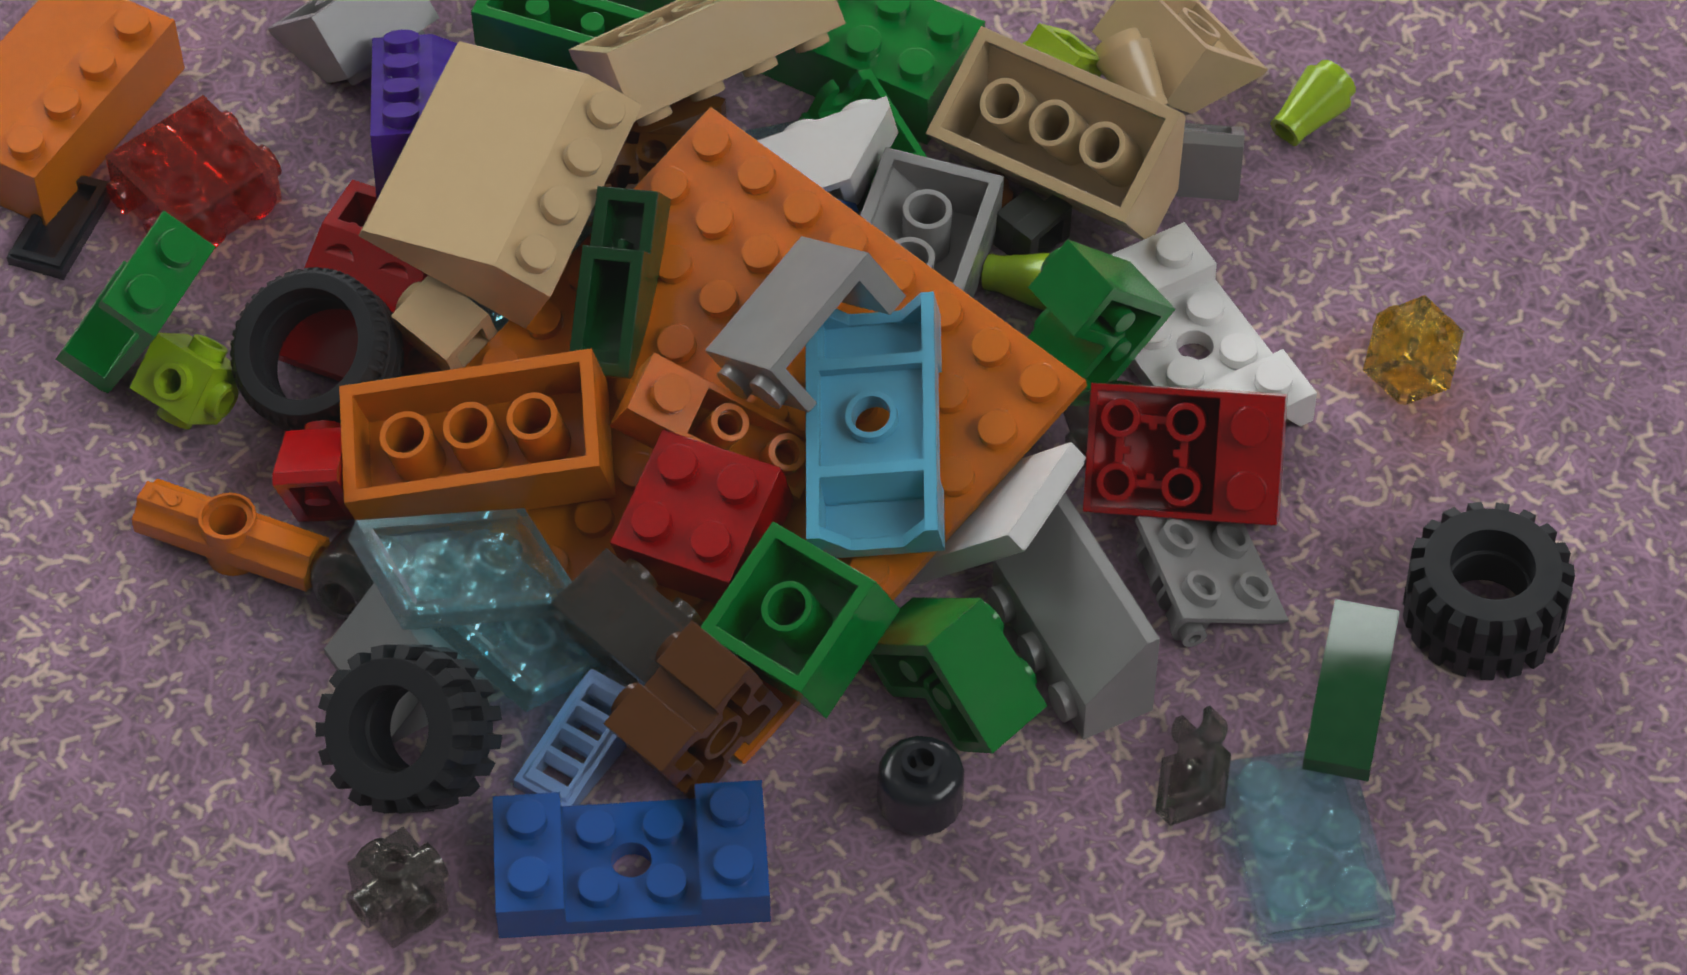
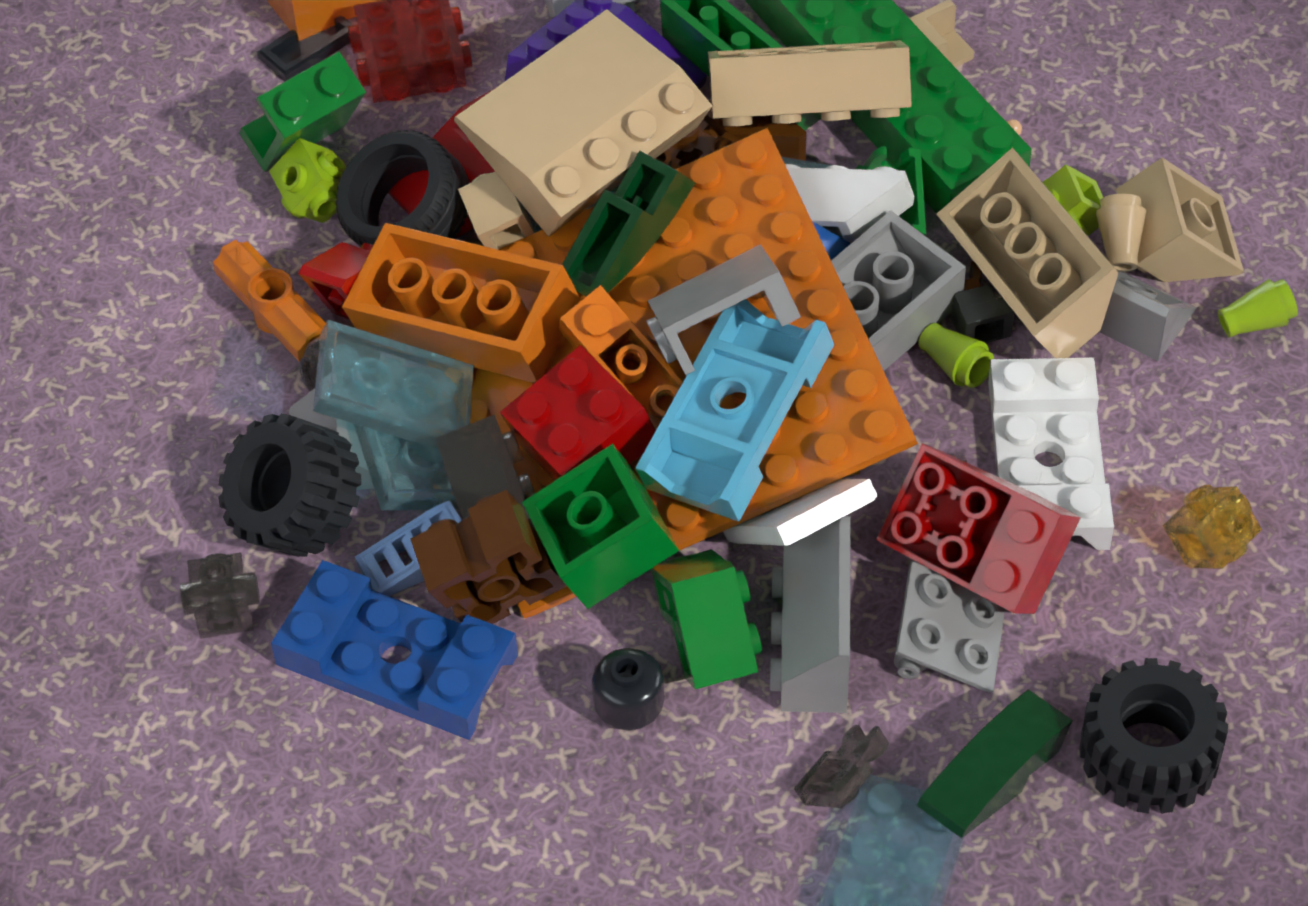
camera: 30 degrees right, 0 degrees up
(1096, 311) = (970, 395): green brick -> none

